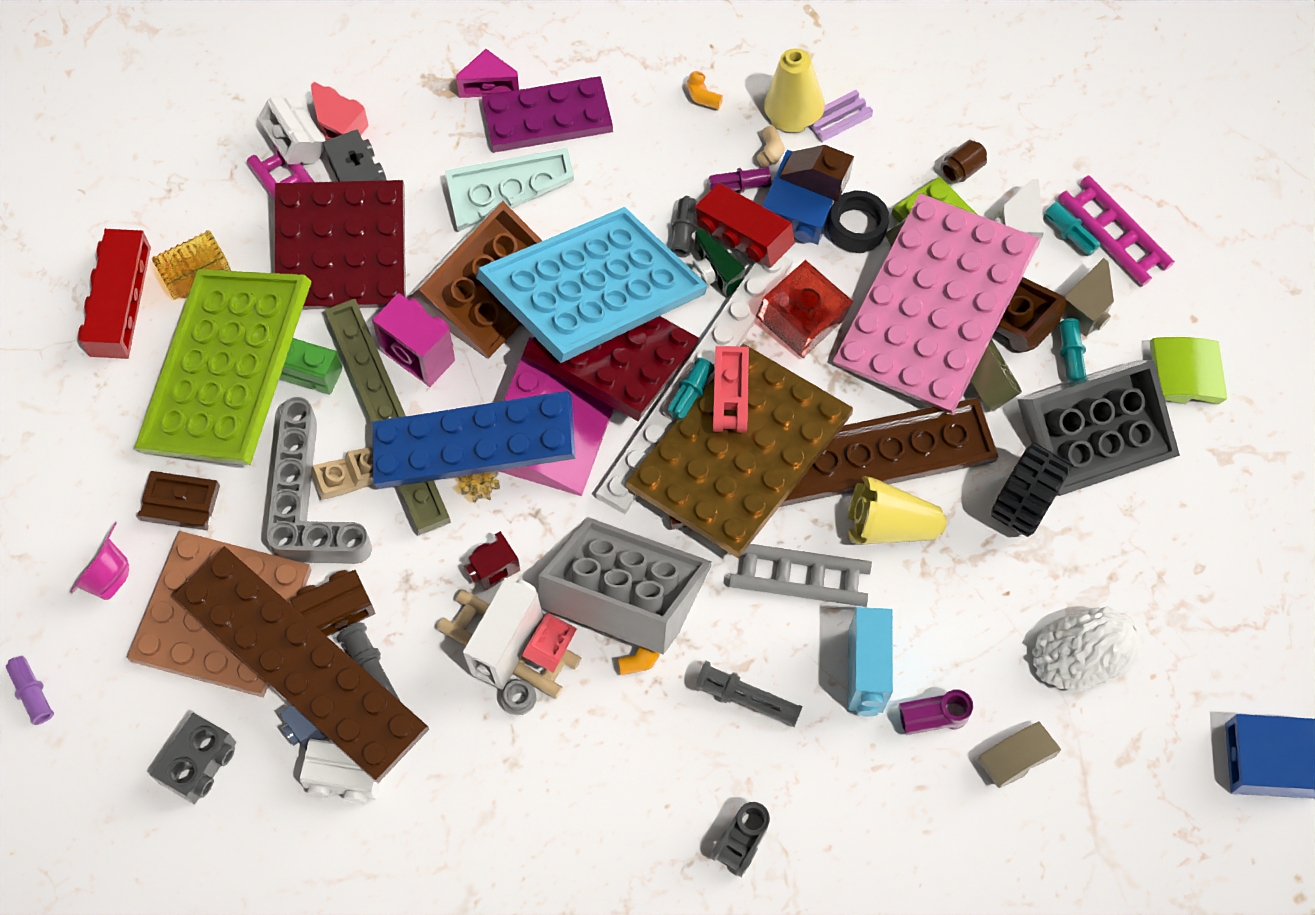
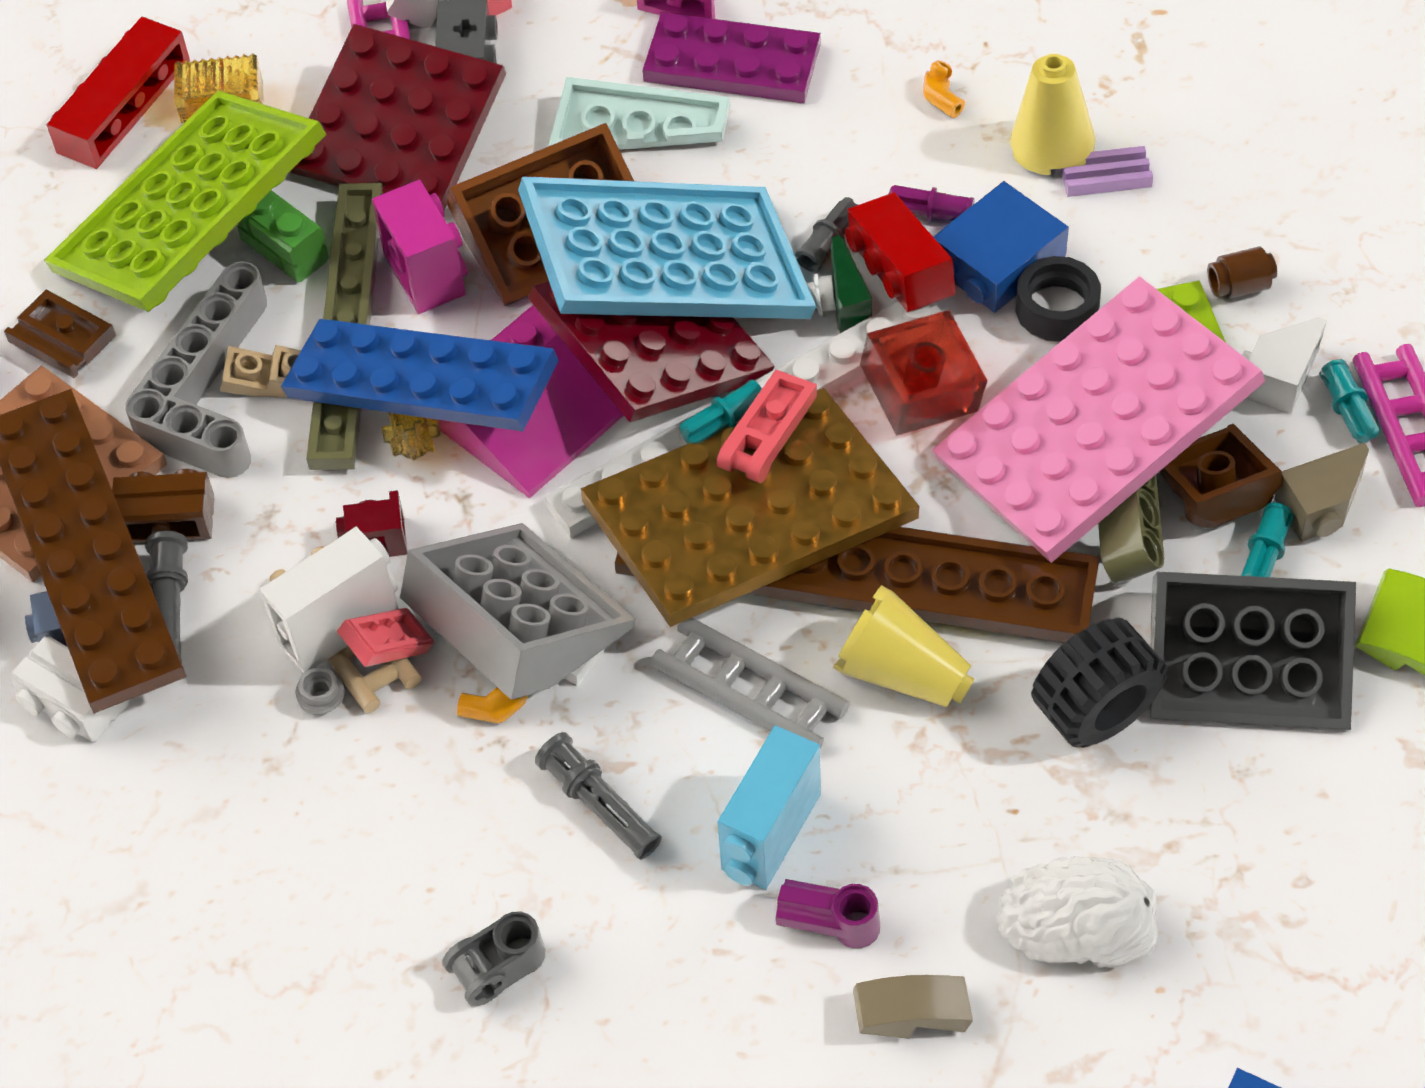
camera: 30 degrees right, 10 degrees down
(774, 147) = (1000, 171): tan arm -> none
(819, 170) = (1029, 215): reddish brown slope -> none

